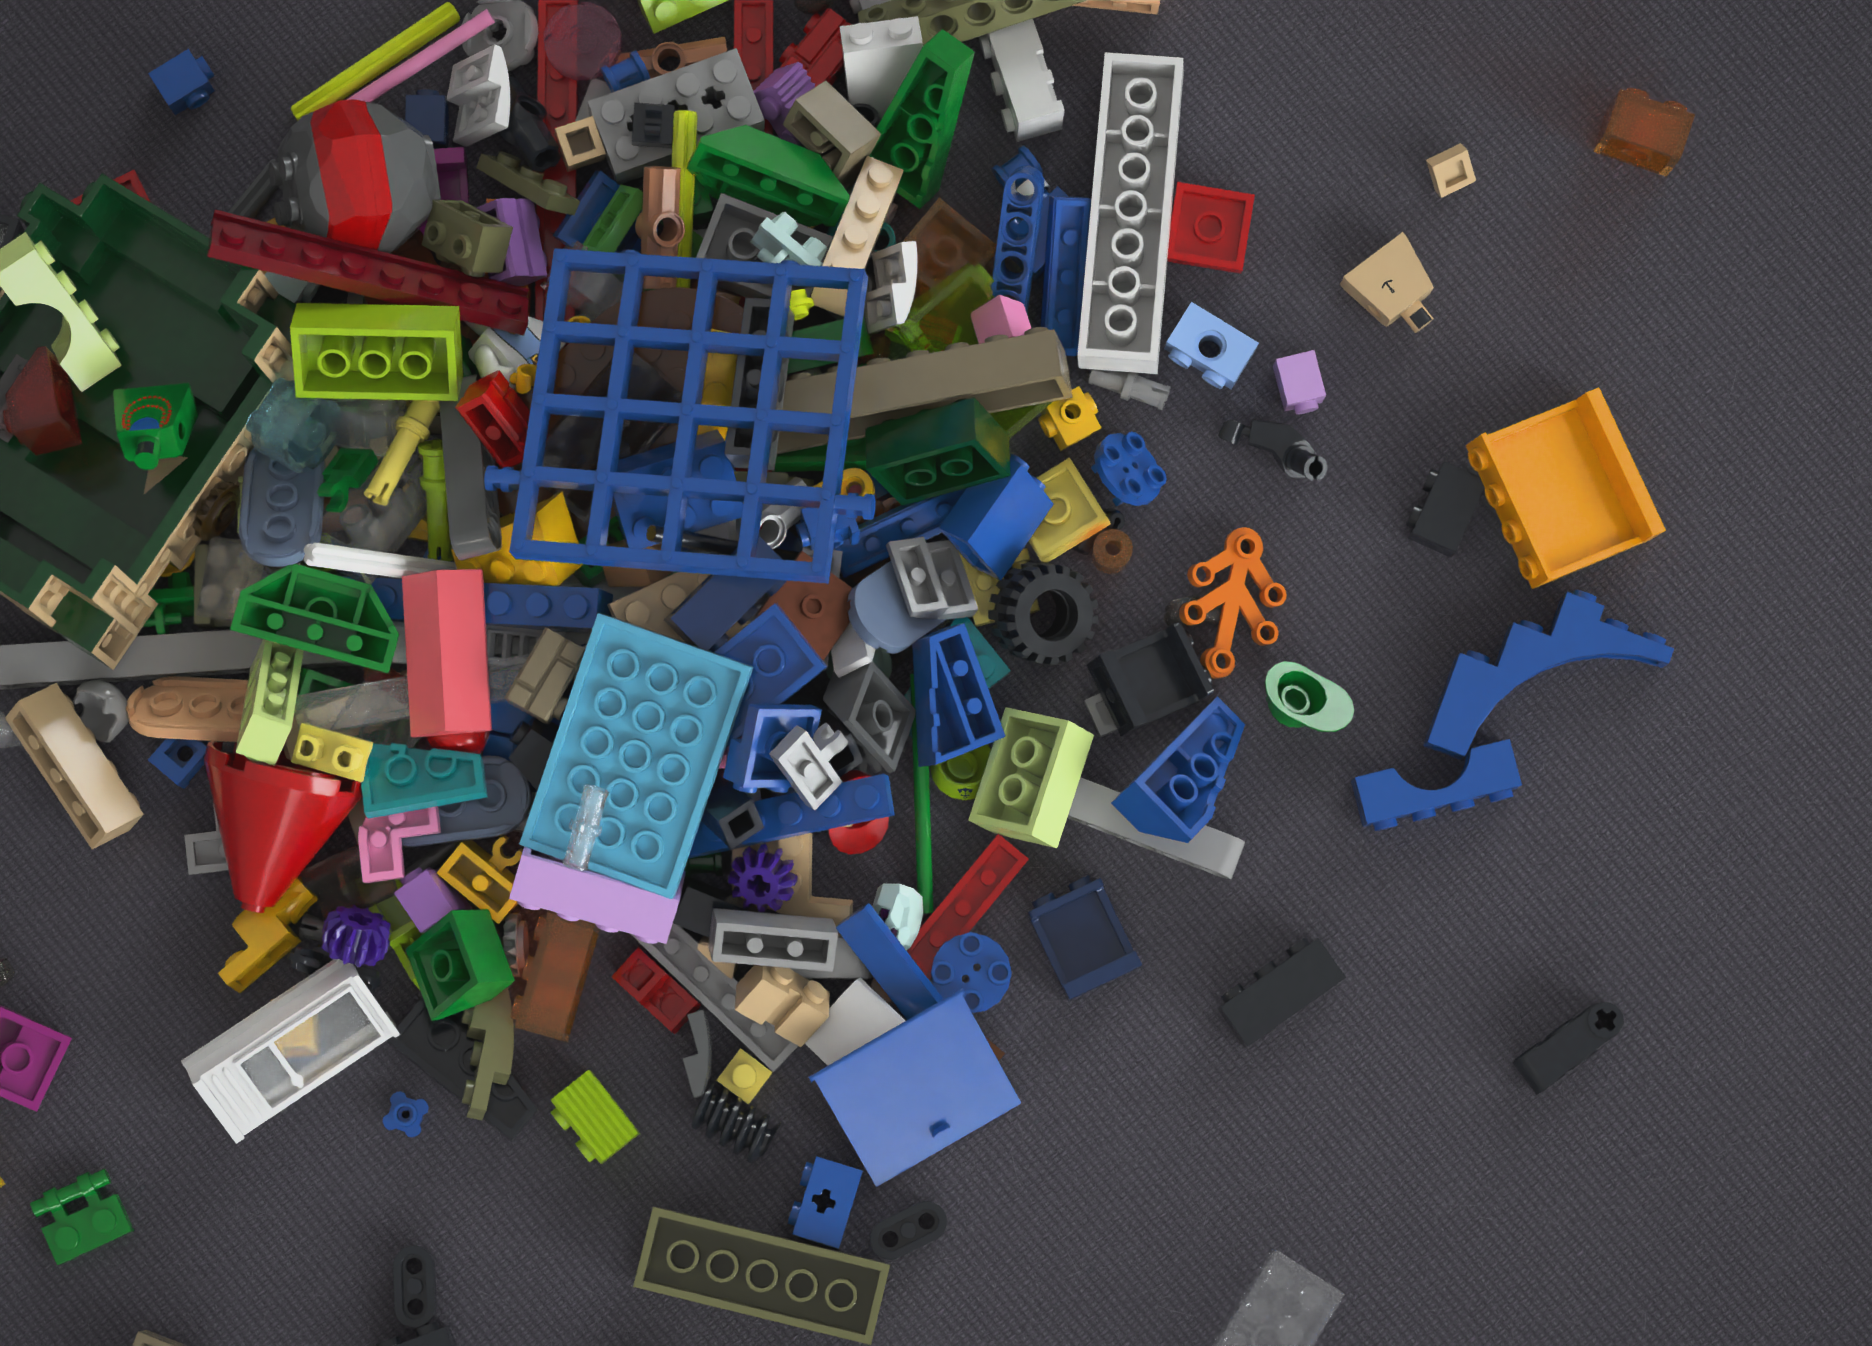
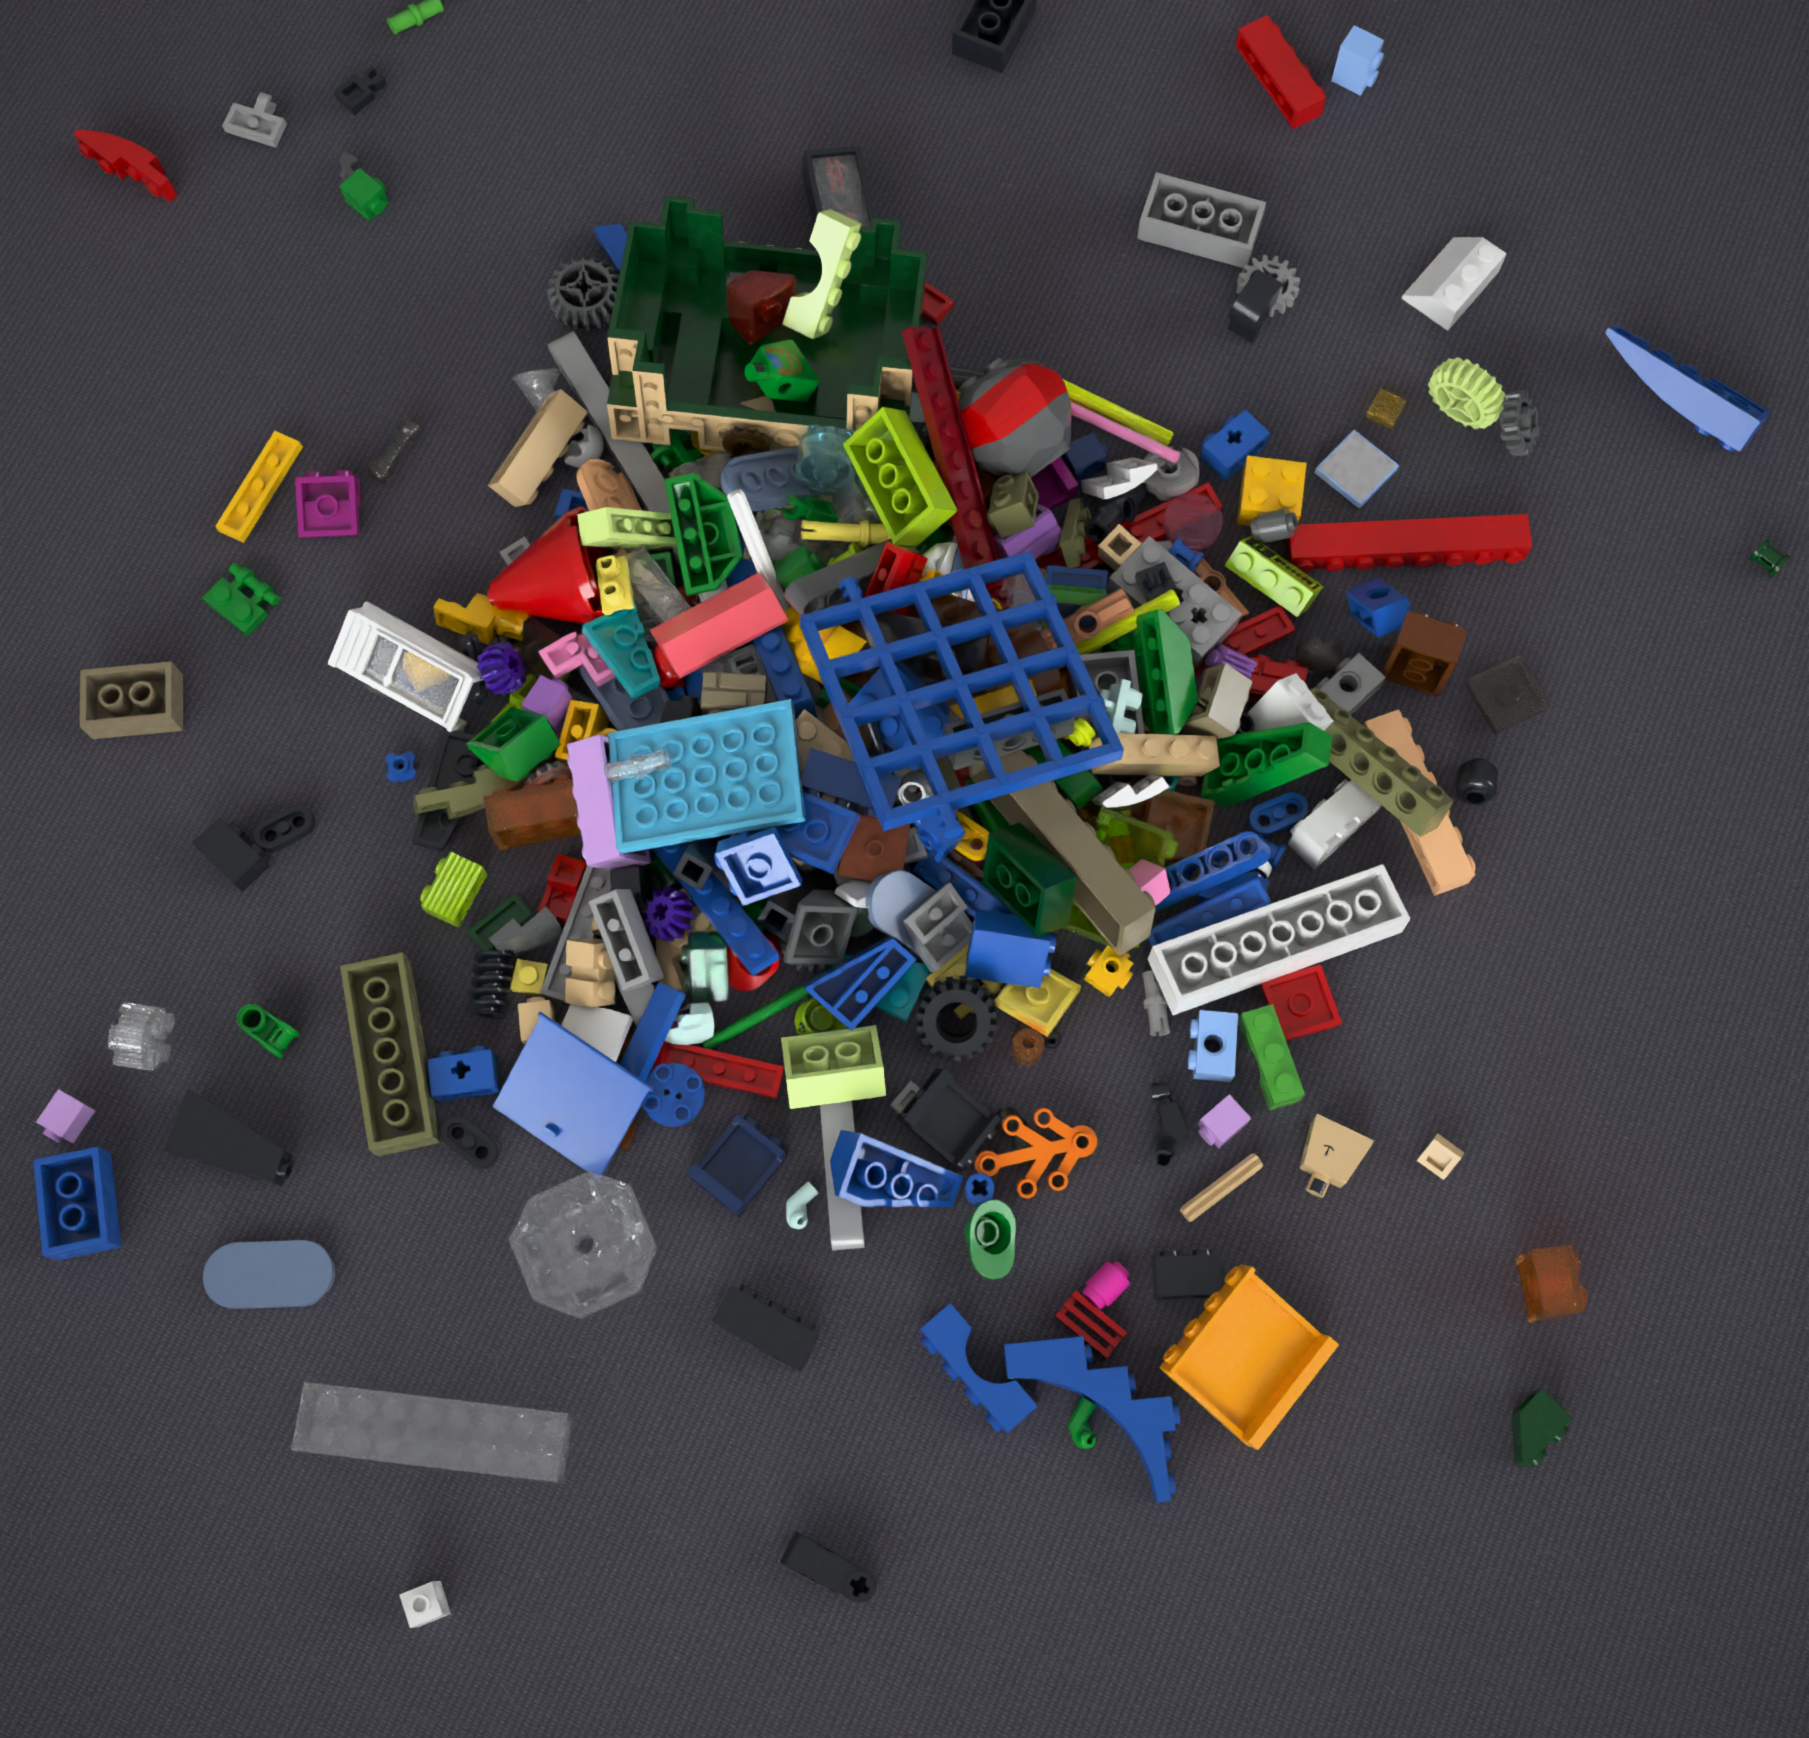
camera: 70 degrees right, 10 degrees down
(184, 82) = (1027, 300): blue brick -> none
(420, 527) = (797, 565): none -> green brick
(663, 1081) = (495, 920): none -> dark green tile
(799, 1092) = (529, 1015): none -> tan brick
(807, 764) = (755, 894): light grey plate -> none
(843, 863) = (707, 966): none -> clear green brick
(980, 135) = (1275, 813): none -> blue plate
(1128, 469) = (1095, 1041): blue plate -> none
(1139, 1138) = (550, 1237): none -> clear piece
(1161, 895) = (796, 1206): none -> light aqua arm
(1249, 674) = (979, 1179): none -> blue bush
(1276, 293) = (1276, 1067): none -> bright green arch
(1367, 421) = (1221, 1187): none -> tan axle
(1413, 599) = (1106, 1284): none -> dark pink brick
(1475, 625) = (1068, 1306): none -> red tile
(1547, 706) = (1079, 1426): none -> green arm
(1776, 229) = (1535, 1426): none -> dark green slope

